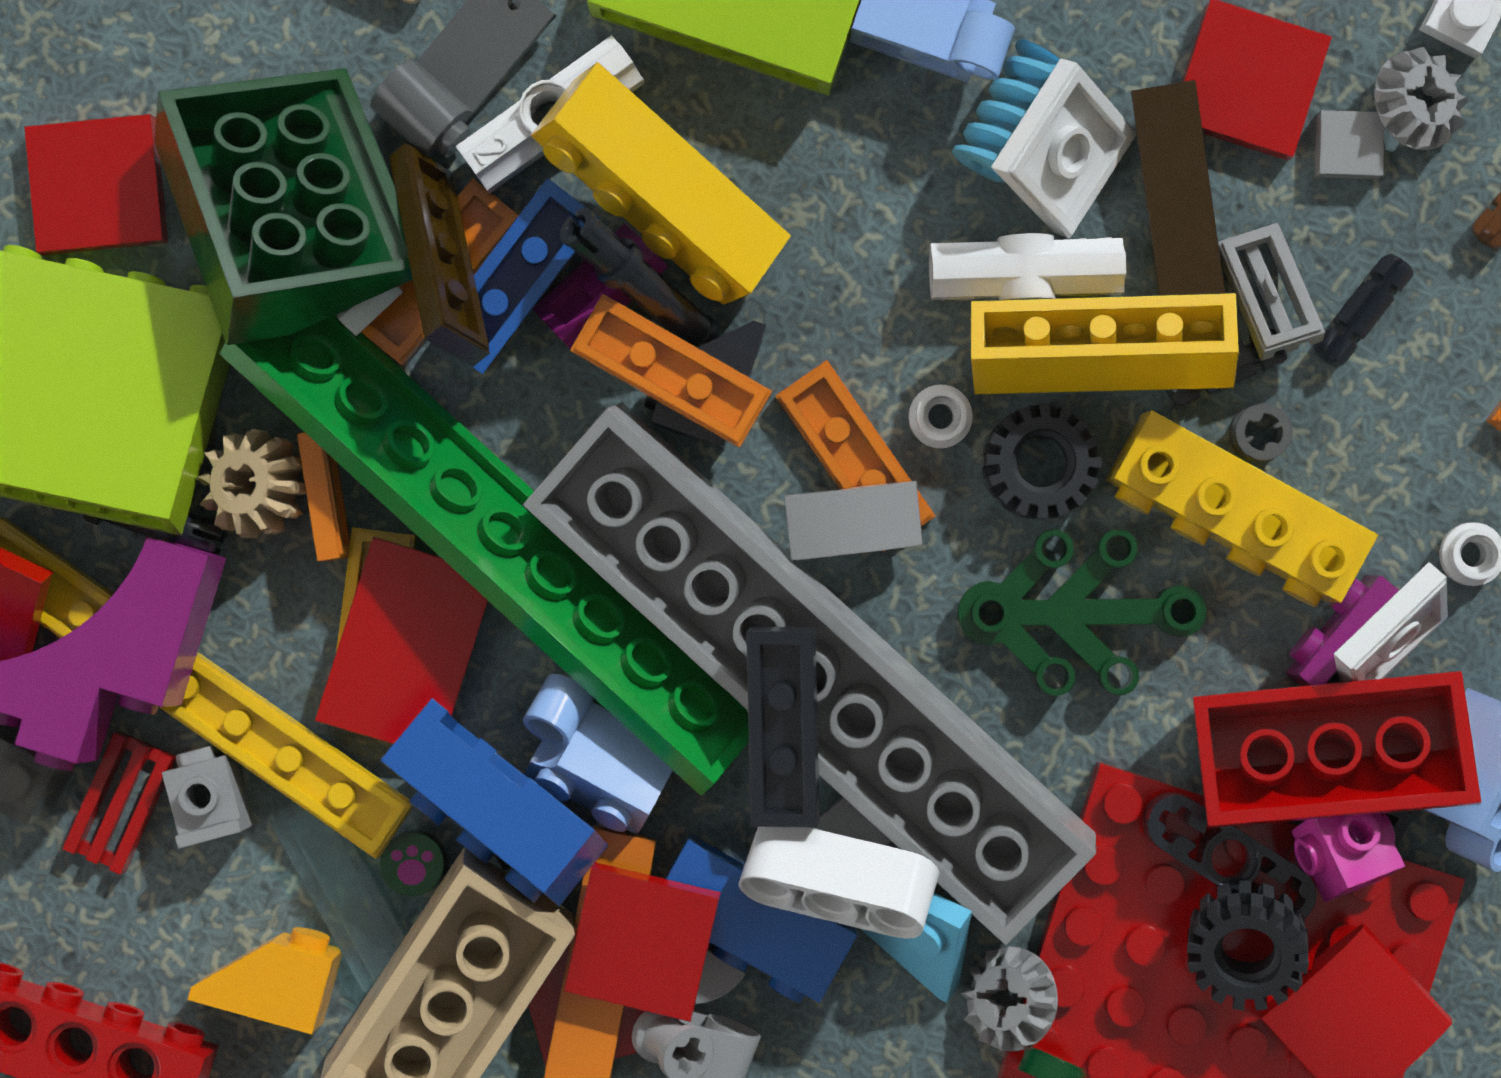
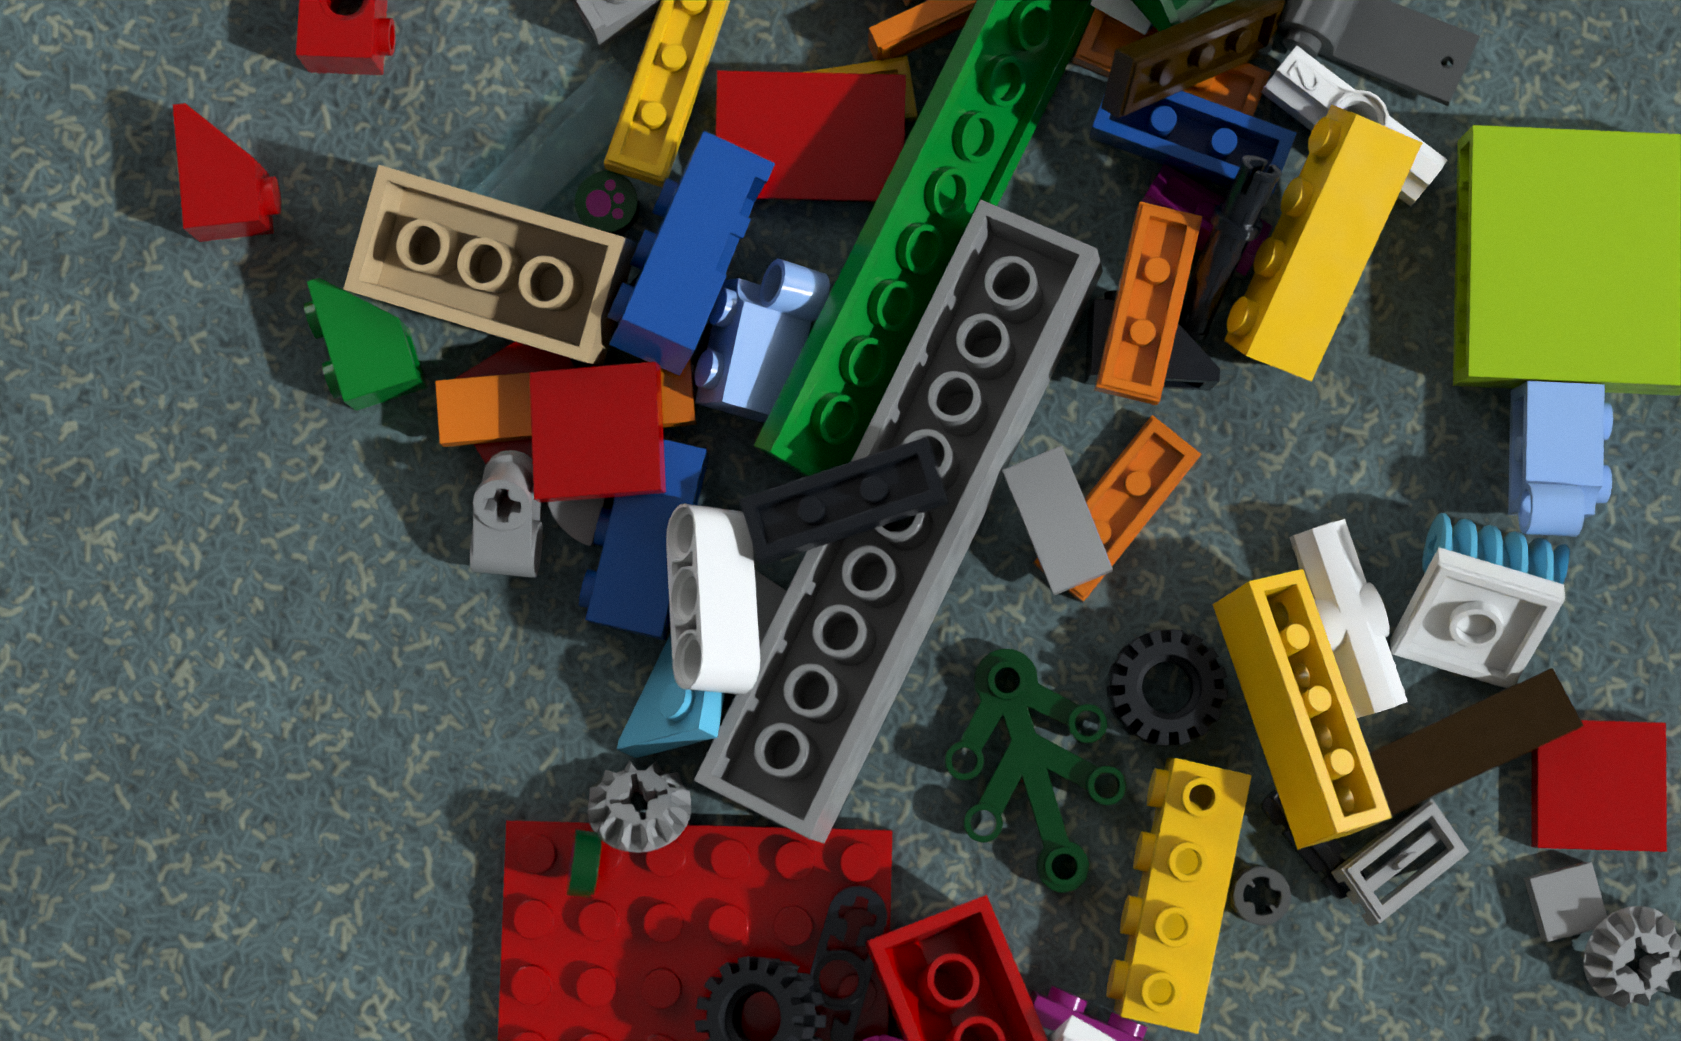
camera: 75 degrees right, 5 degrees down
(277, 982) = (461, 108): light orange slope -> none
(955, 402) = (1198, 570): white plate -> none
(1364, 309) = (1410, 962): black axle -> none

